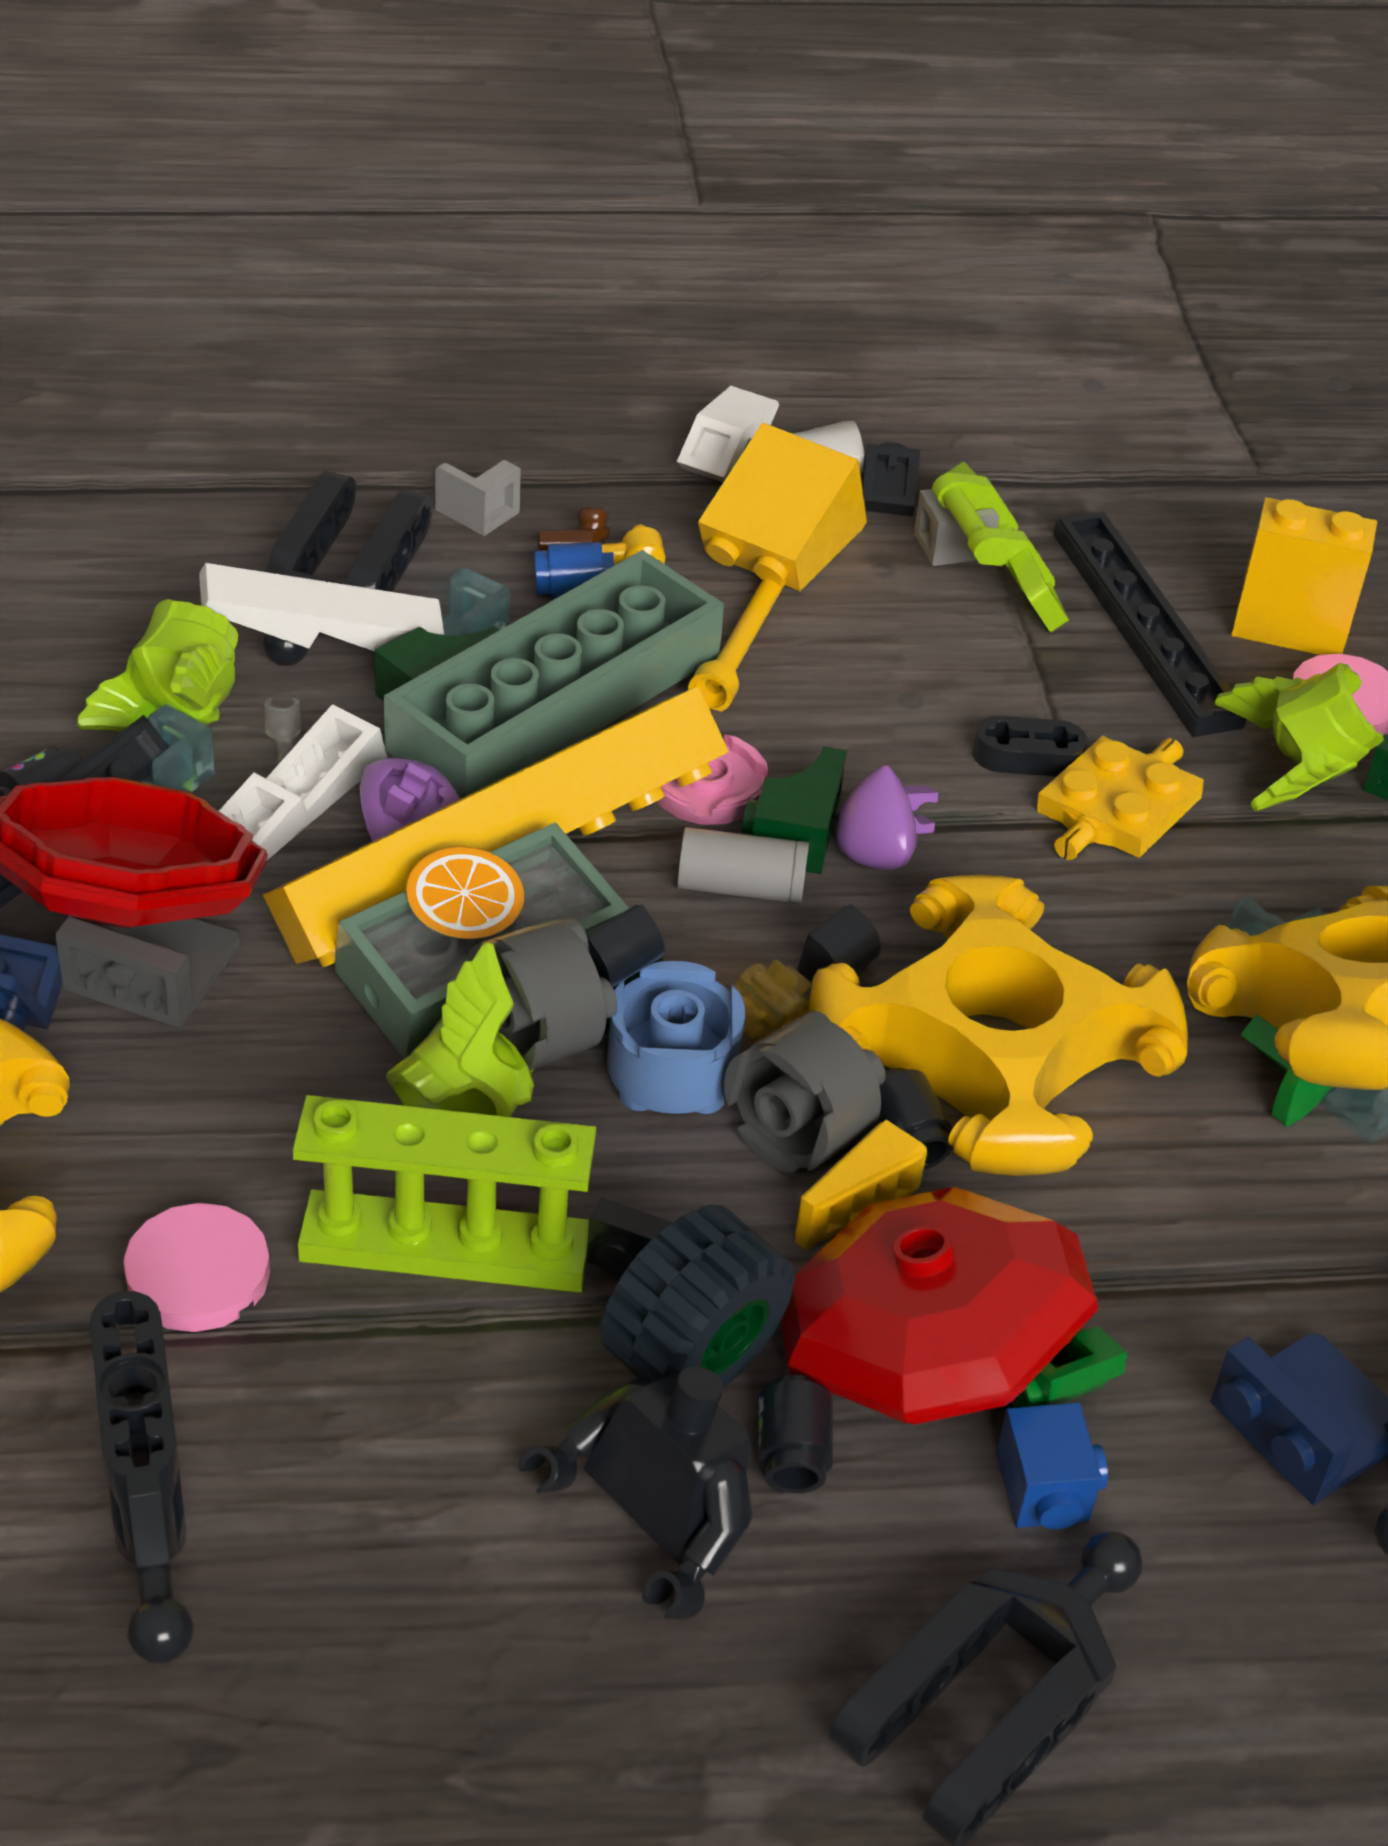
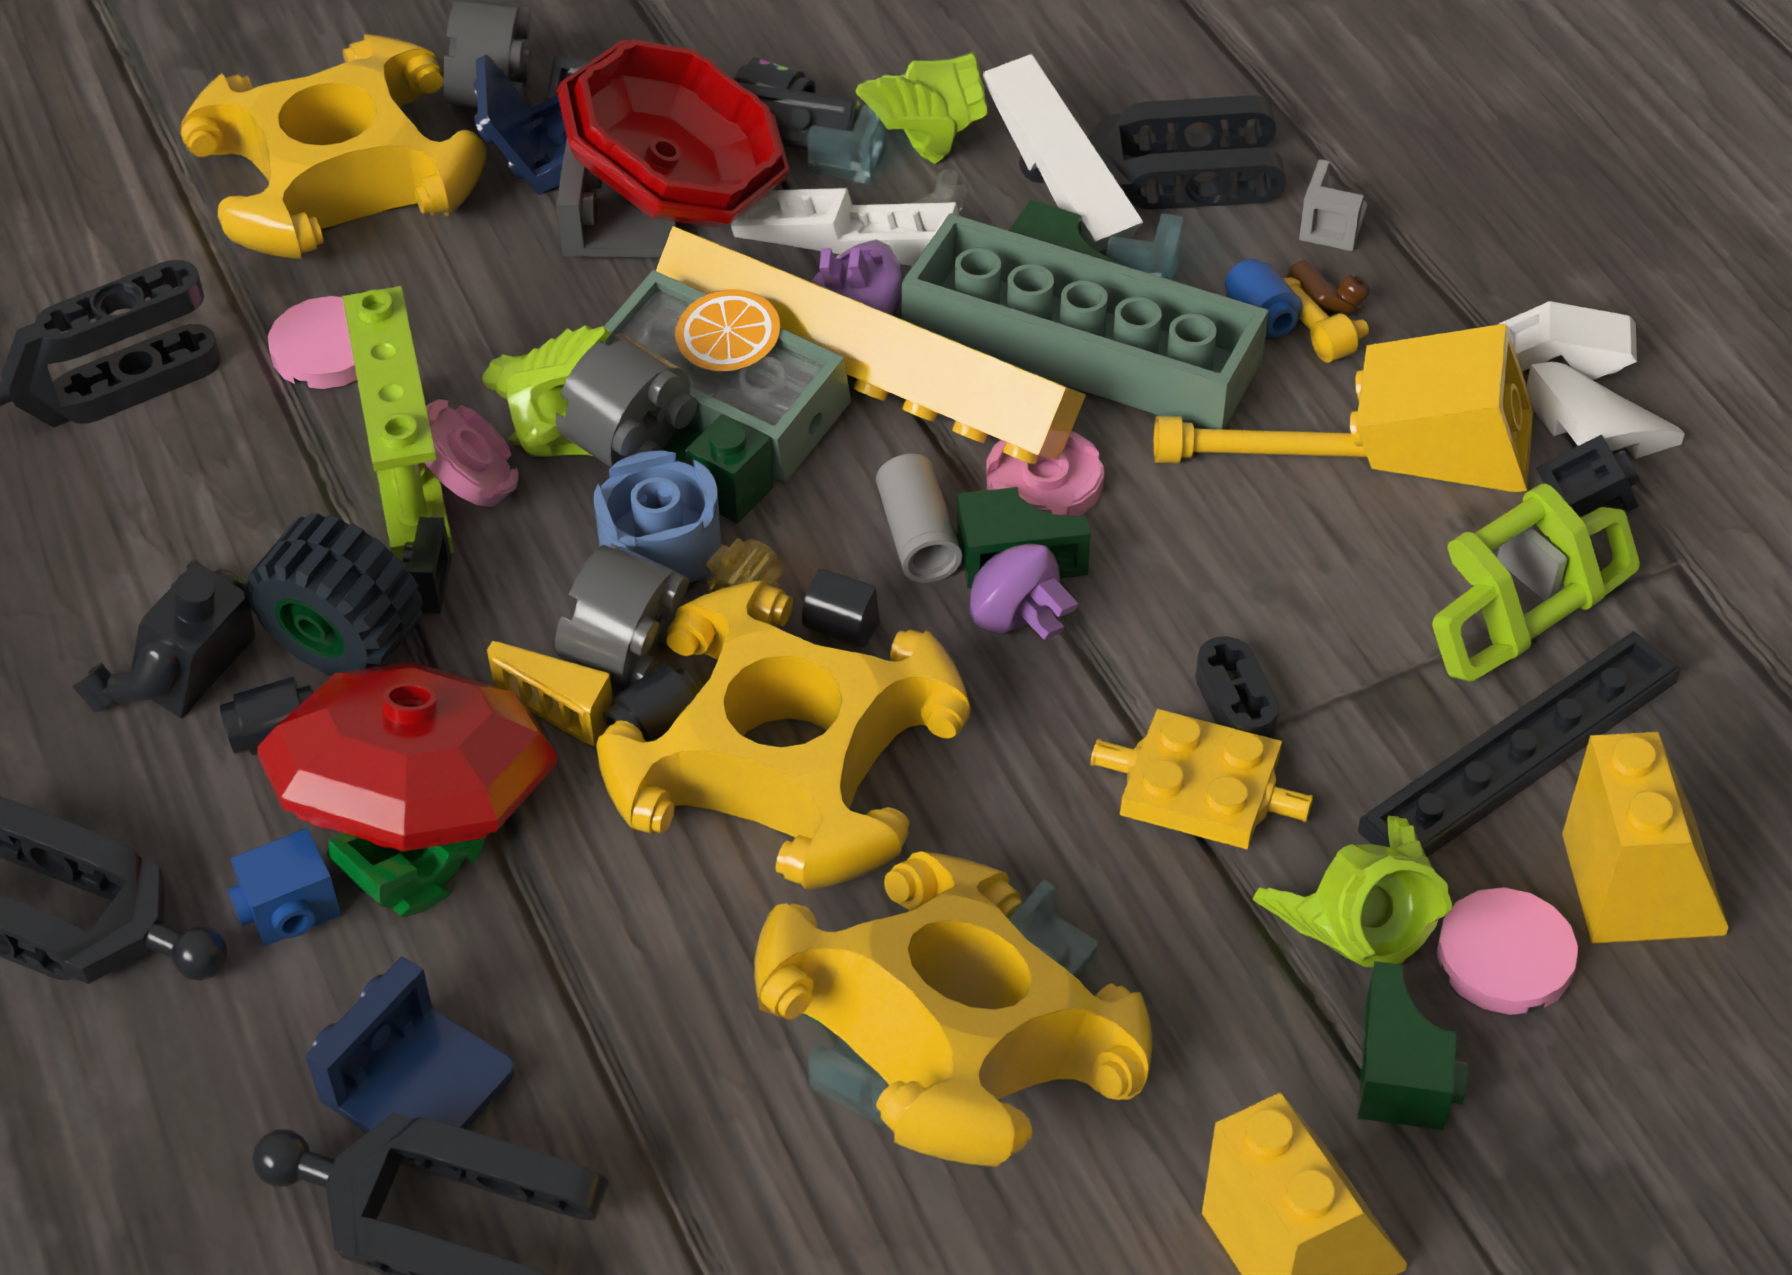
camera: 75 degrees right, 5 degrees up
(625, 945) = (688, 429): black brick -> none

